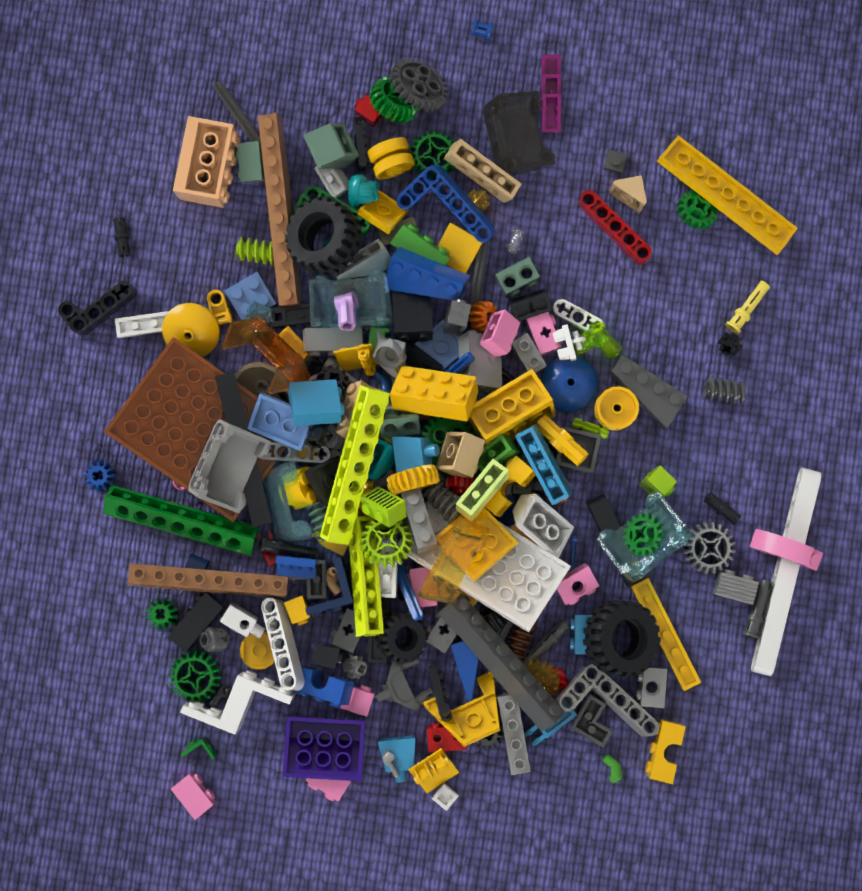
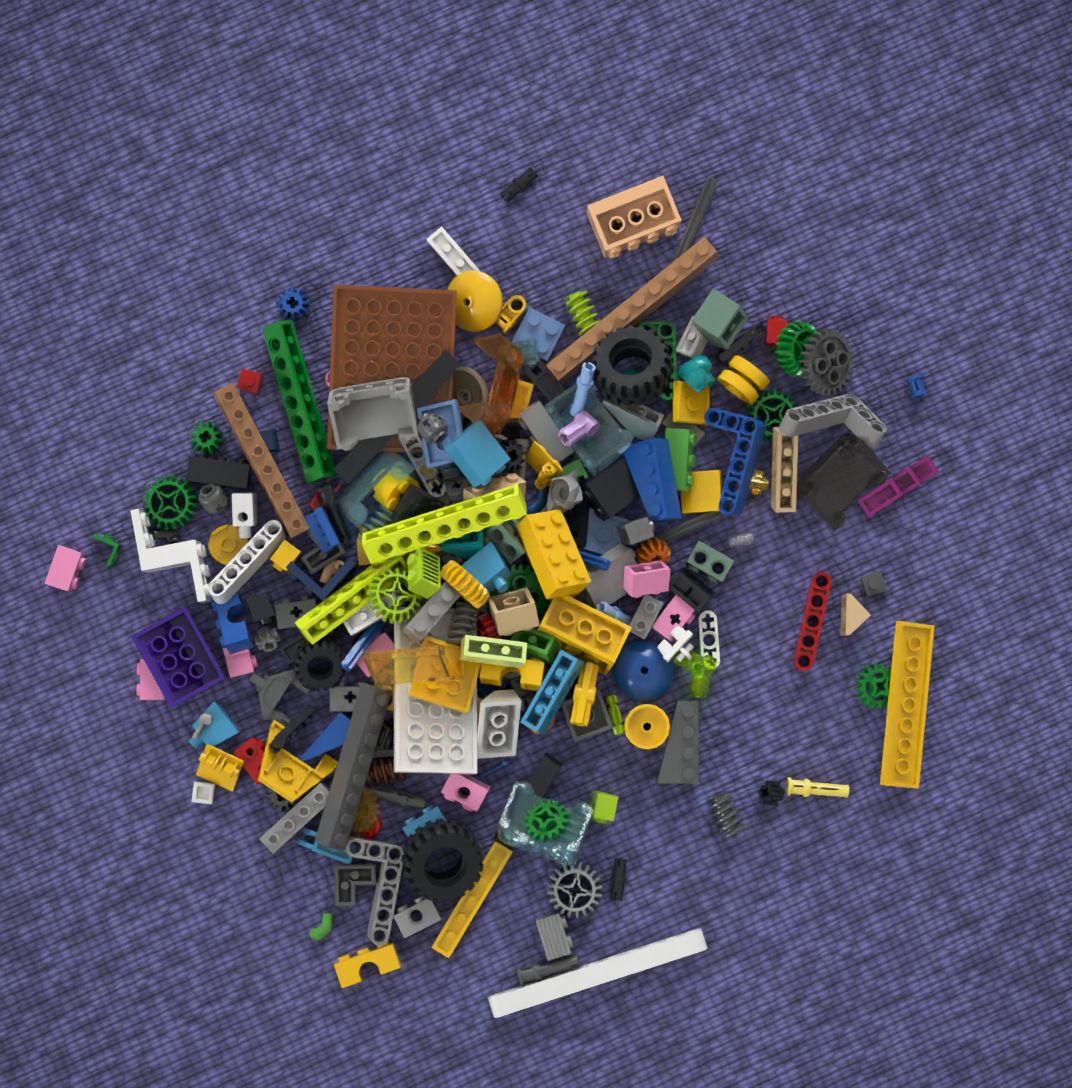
camera: 55 degrees right, 0 degrees up
(100, 304) = (446, 205): black beam -> none
(140, 550) = (250, 382): none -> red brick
(250, 162) = (659, 256): sand green brick -> none
(271, 425) = (432, 428): none -> dark grey head
(313, 281) = (584, 383): none -> light blue pin
(462, 102) = (831, 412): none -> light grey beam
(509, 376) = (613, 612): none -> light blue pin
(786, 549) = (617, 960): bright pink arch -> none

